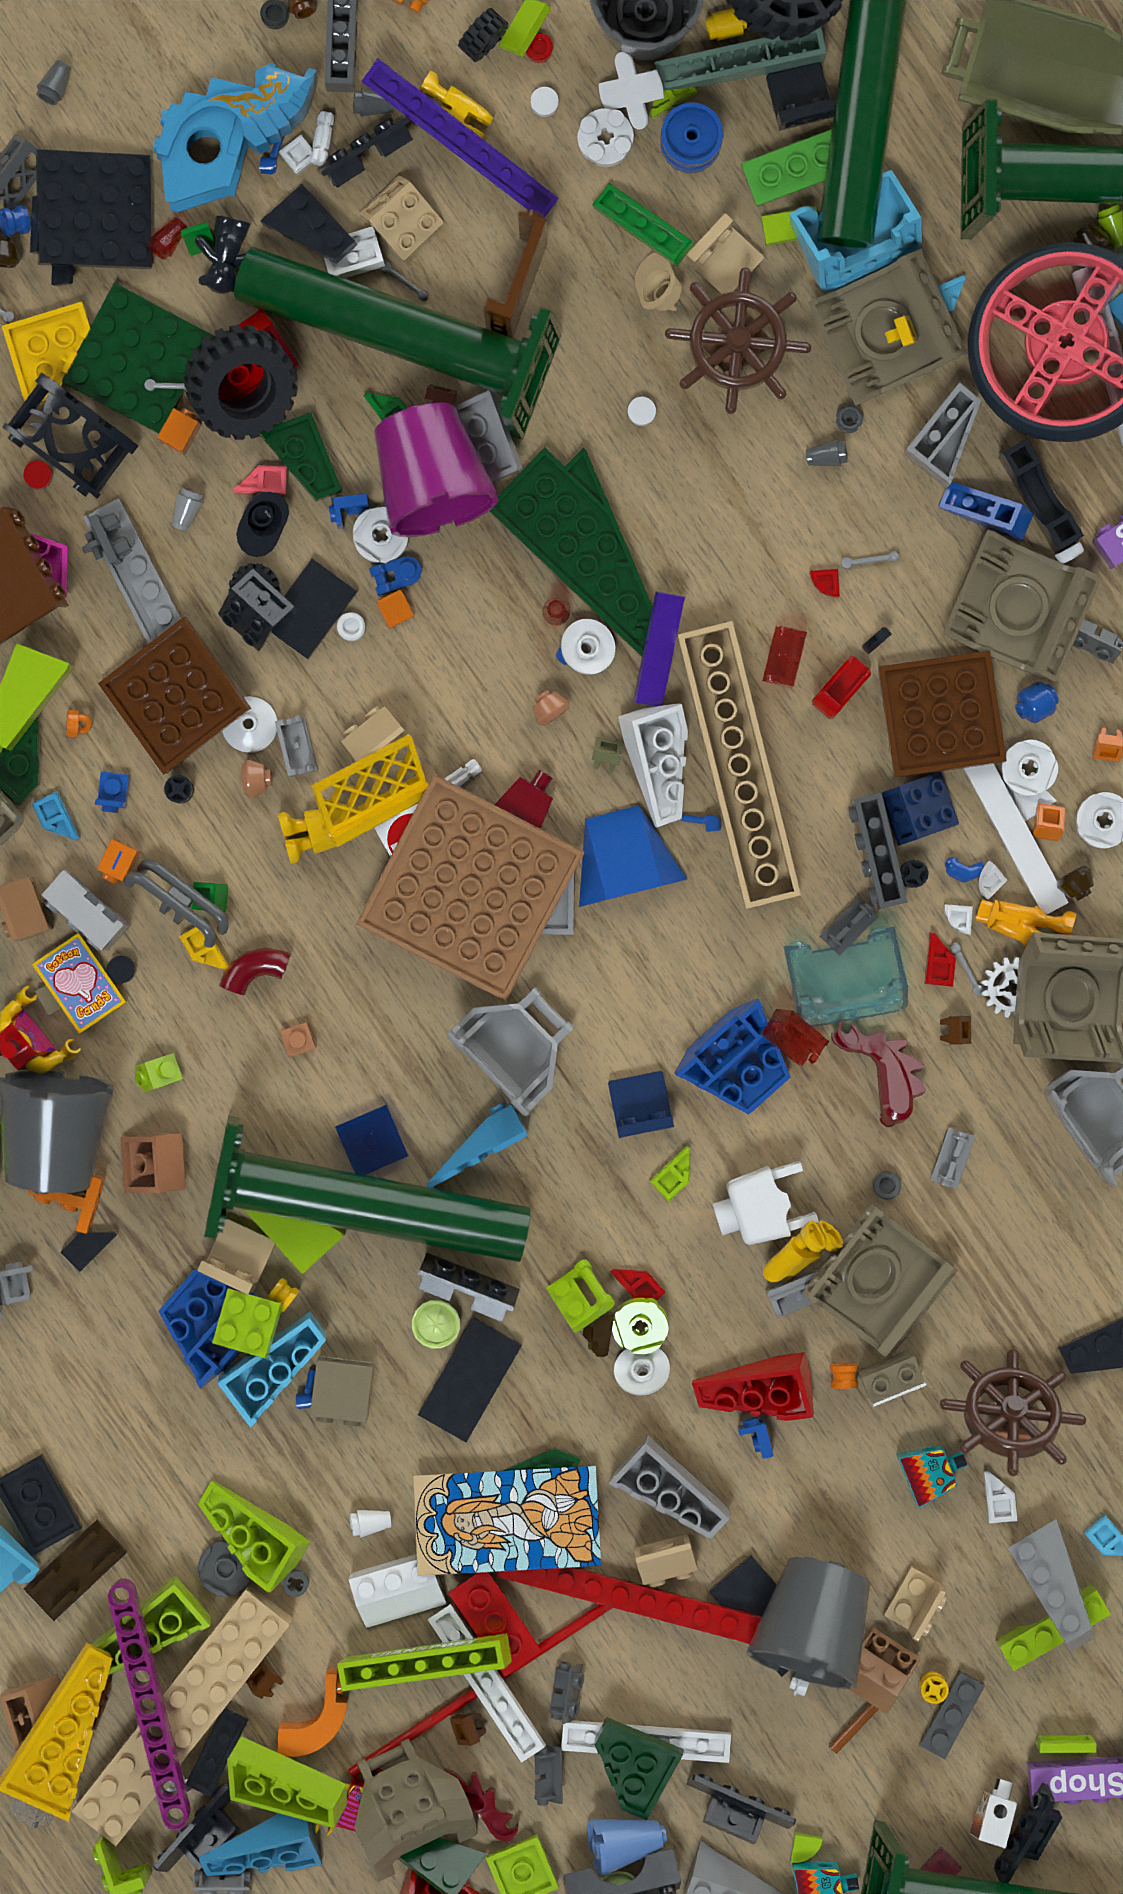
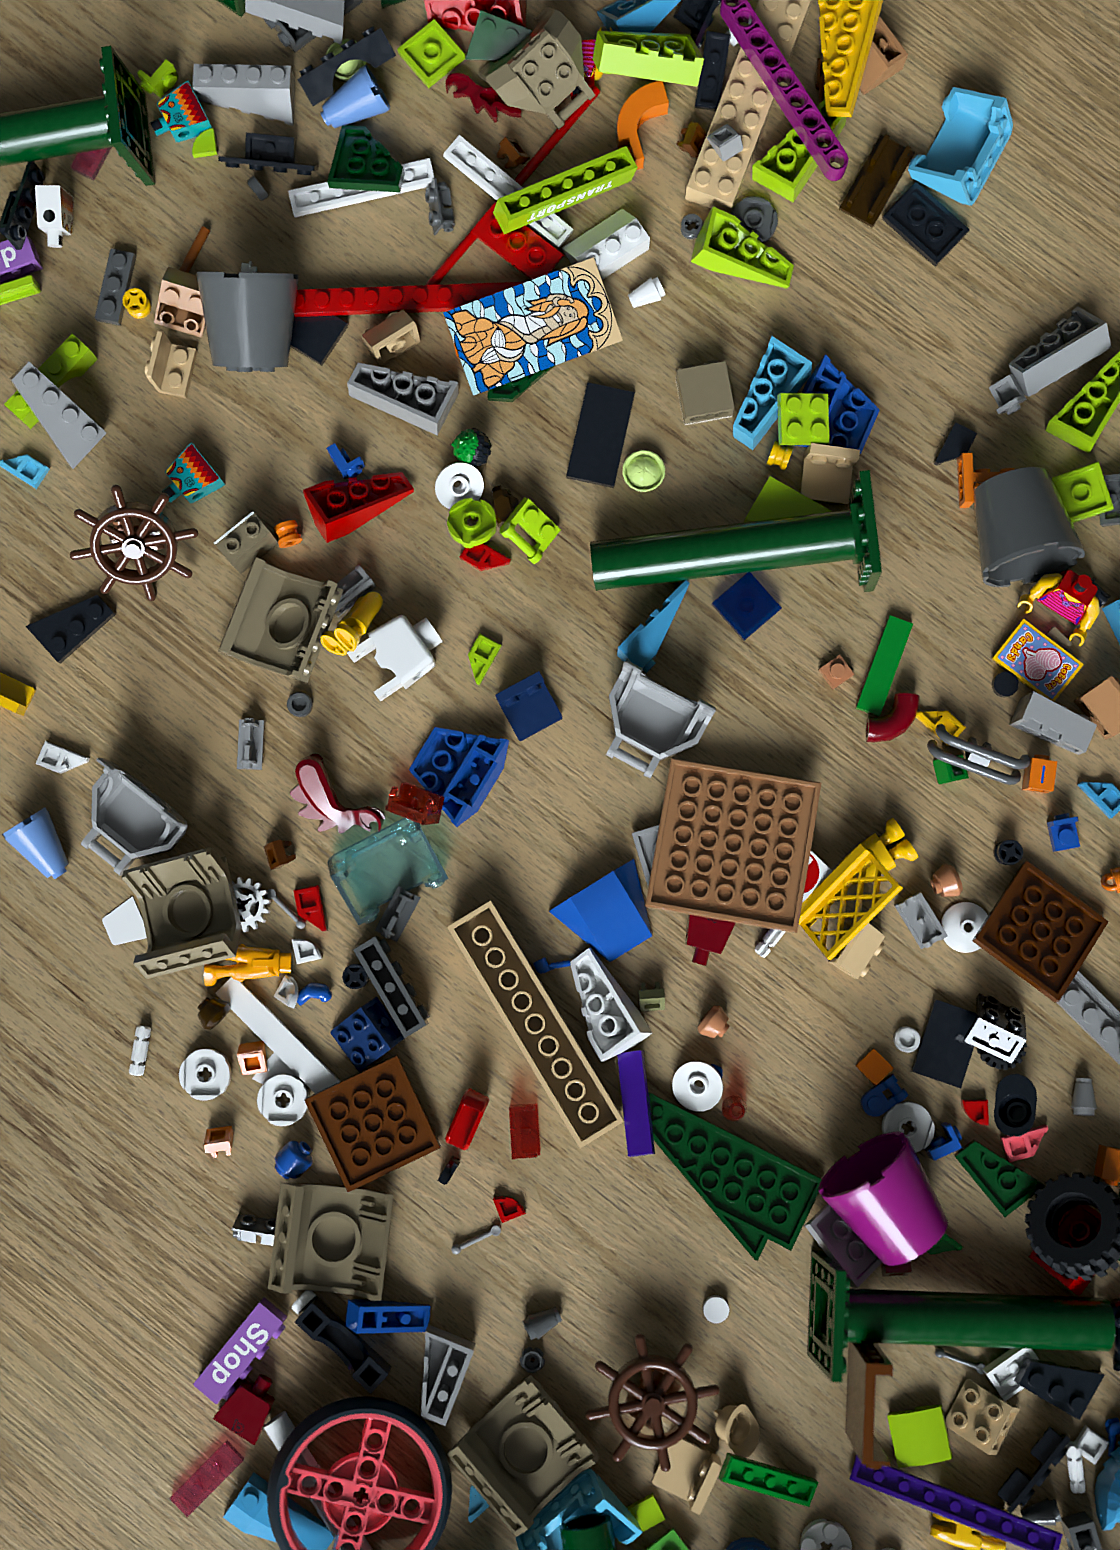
camera: 170 degrees right, 5 degrees down
(153, 1163) = (924, 530): nougat slope -> none
(157, 1073) = (945, 607): lime bracket -> none
(232, 1659) = (725, 142): none -> light grey slope
(244, 1030) = (884, 666): none -> green tile
(302, 530) = (976, 1110): none -> red tile
(304, 1400) = (734, 375): blue hand -> none
(472, 218) = (919, 1436): none -> lime slope
(491, 1295) = (649, 511): black brick -> none
(548, 1765) = (435, 141): dark grey hinge -> none
(614, 1407) = (472, 447): none -> piece
(762, 1776) = (257, 188): none -> dark grey tile
(904, 331) = (508, 1455): yellow tile -> none
(999, 1500) = (127, 473): white tile -> none

